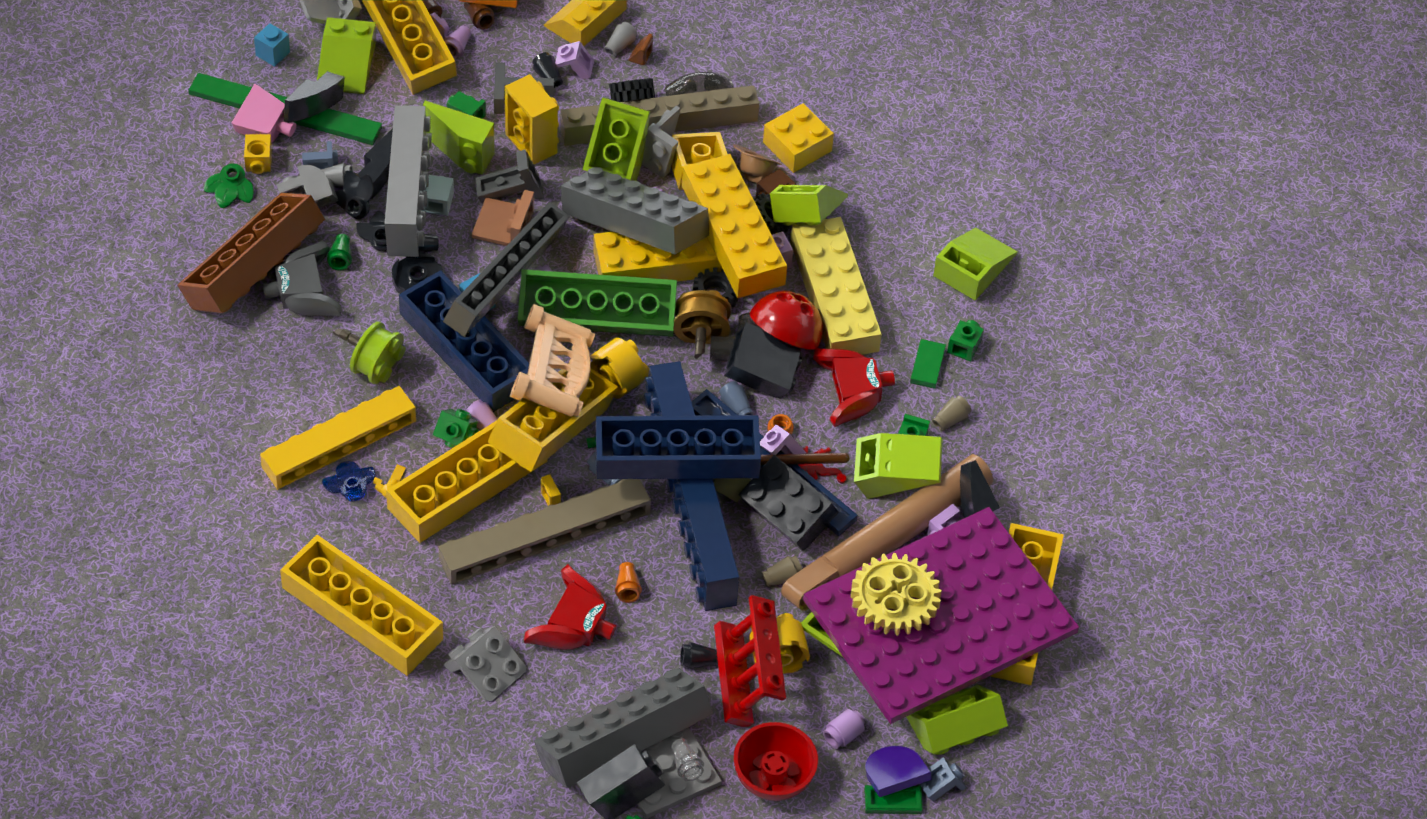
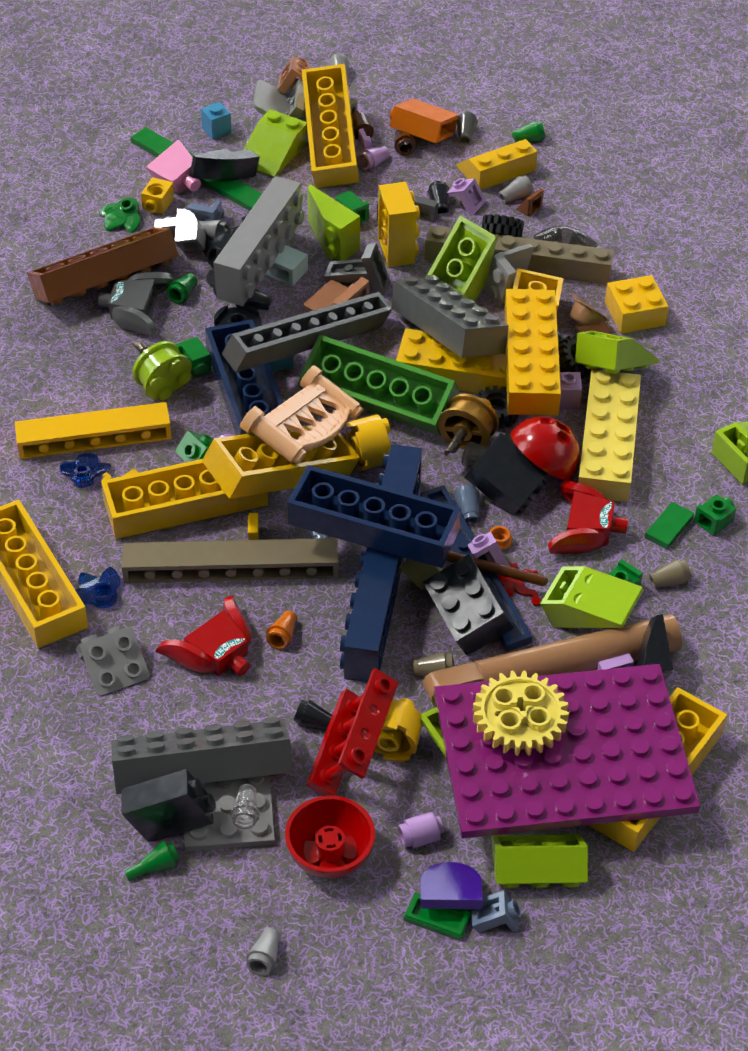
camera: 25 degrees right, 5 degrees down
(398, 322) = (197, 354): none -> green brick
(429, 597) = (93, 587): none -> clear blue plate

